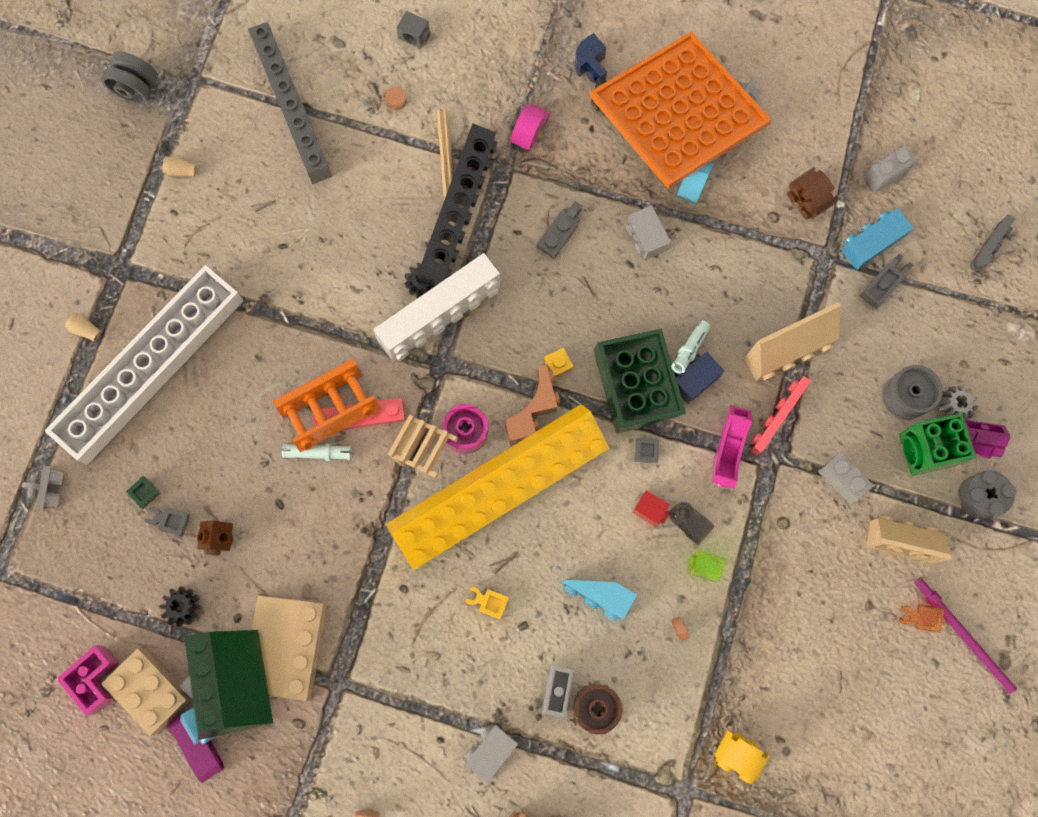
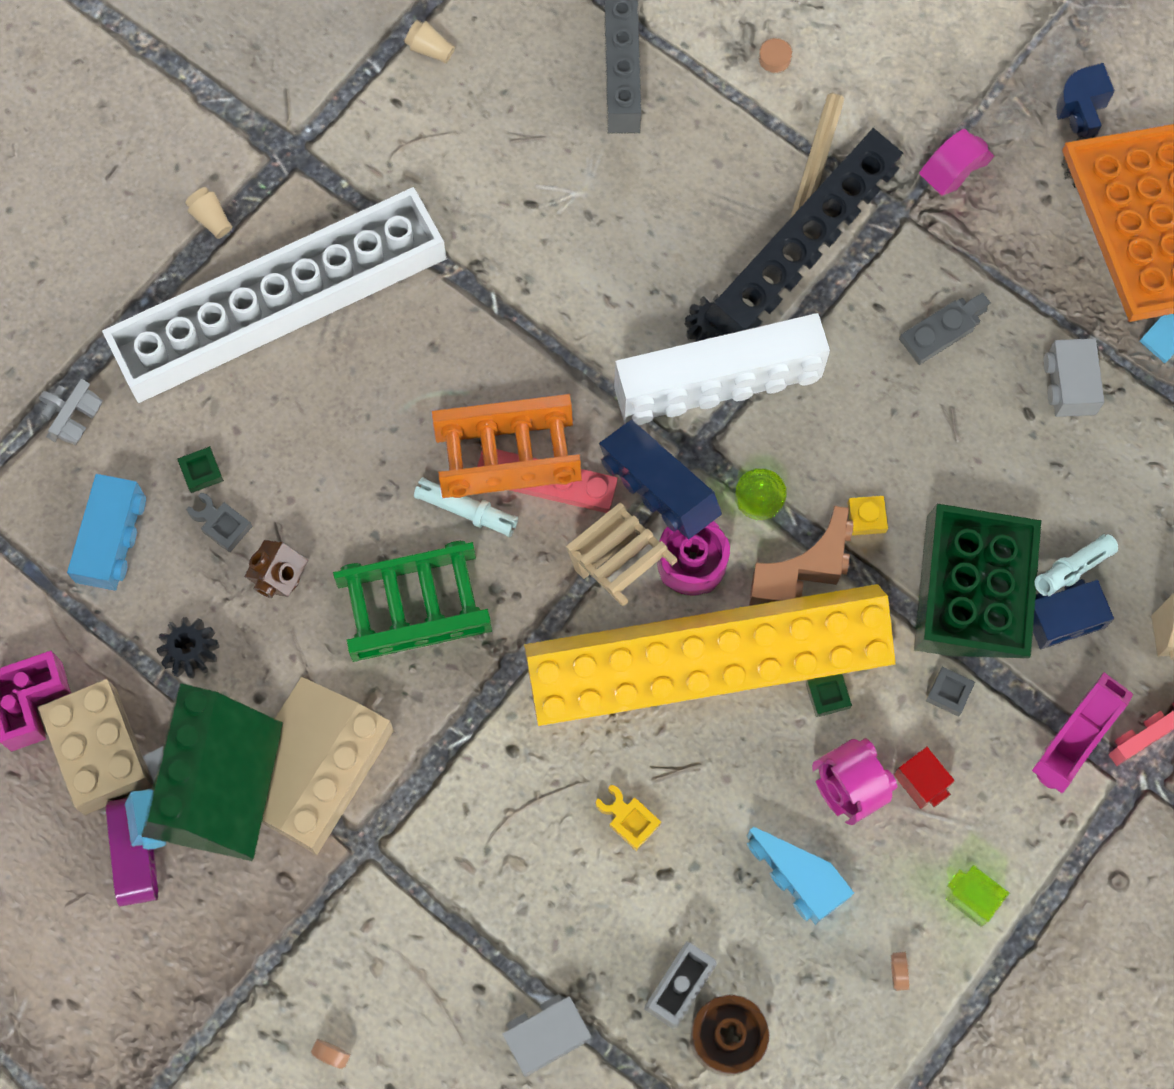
camera: 25 degrees right, 5 degrees down
(100, 555) = (106, 532): none -> dark azure brick
(308, 545) = (401, 634): none -> green fence
(427, 390) = (659, 479): none -> dark blue brick
(491, 374) = (760, 494): none -> clear neon green plate
(577, 481) = (828, 695): none -> dark green plate
(612, 527) = (854, 780): none -> dark pink brick
(692, 524) = (979, 825): clear smoke piece -> none

